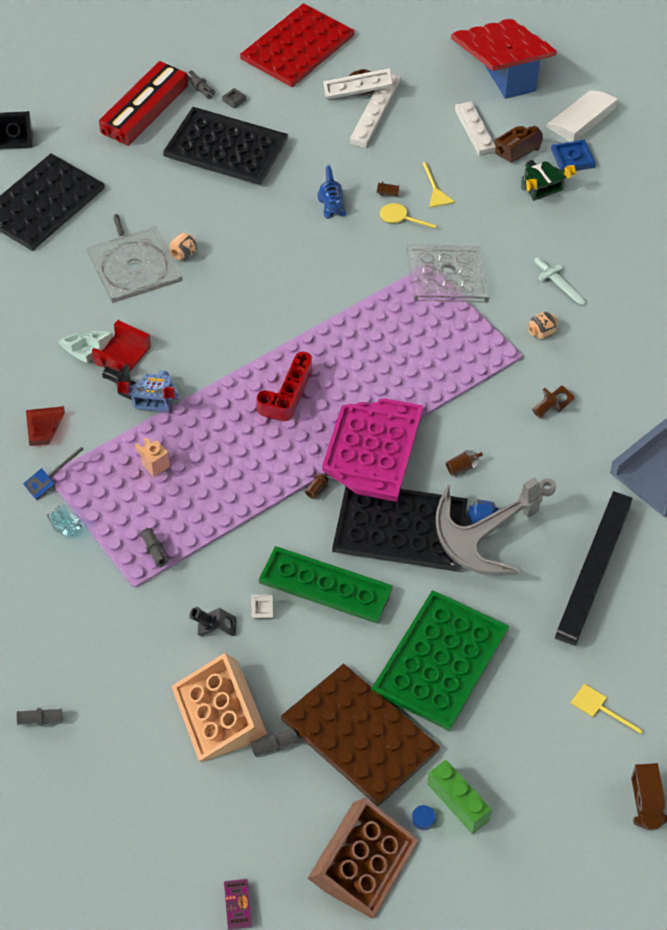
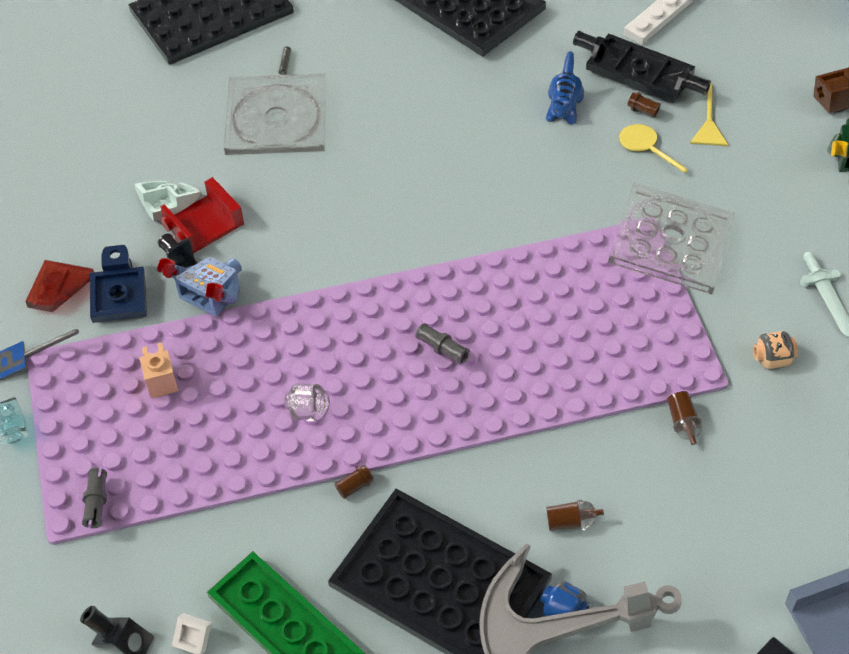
camera: 25 degrees right, 0 degrees up
(85, 405) = (117, 276): none -> dark blue plate
(183, 246) = (345, 107): light nougat head -> none
(263, 445) = (307, 402): none -> clear head
(283, 404) = (390, 328): red beam -> none
(332, 383) = (442, 343): none -> dark grey pin
(373, 163) = (640, 67): none -> black plate
(373, 446) = (452, 452): dark pink plate -> none
(475, 128) = (798, 56): white plate -> none
(506, 384) = (684, 416): none -> piece
(550, 401) = (740, 466): reddish brown bracket -> none

